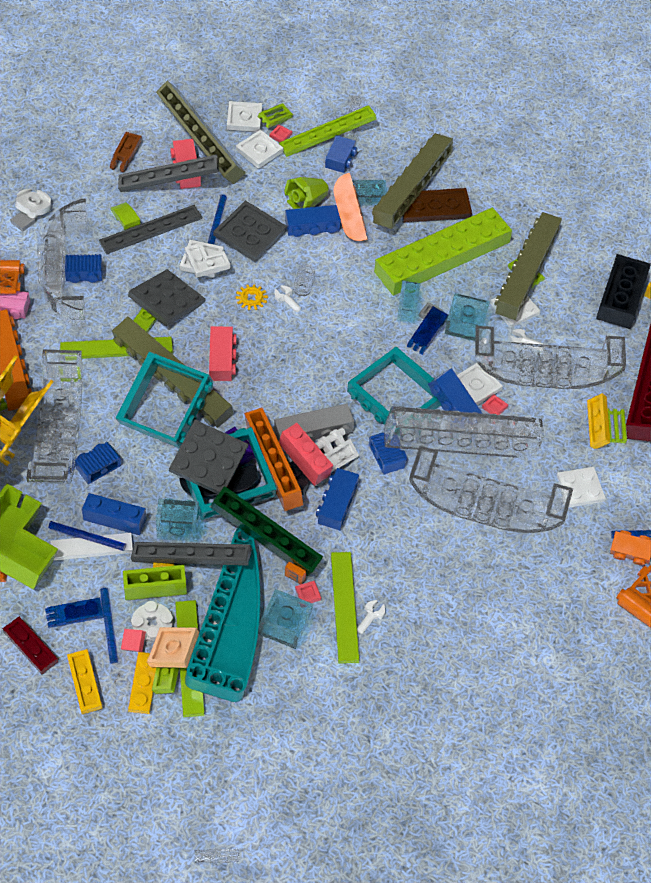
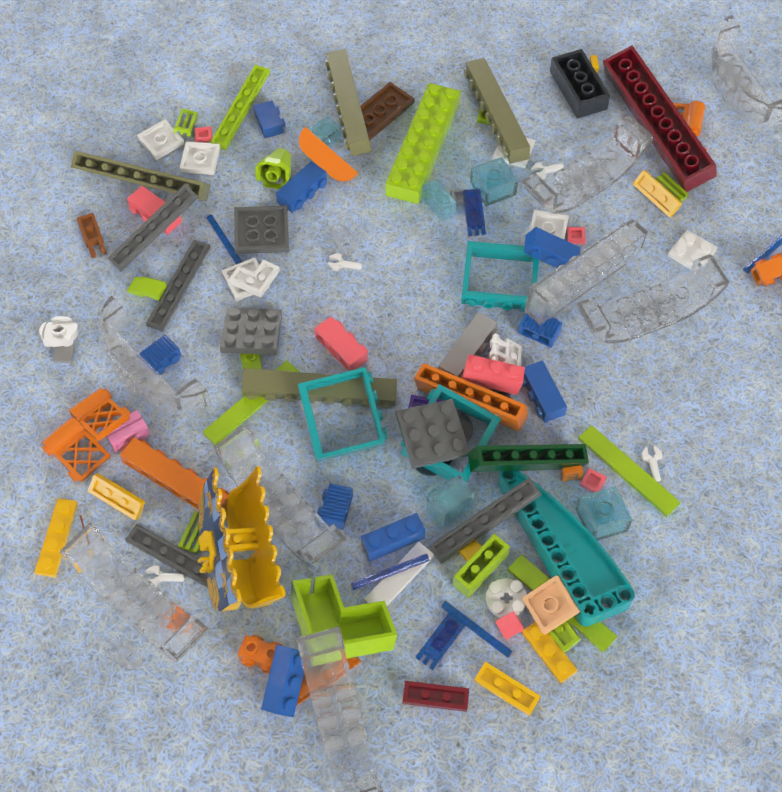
camera: 35 degrees left, 5 degrees up
(251, 290) = (310, 277): yellow gear -> none

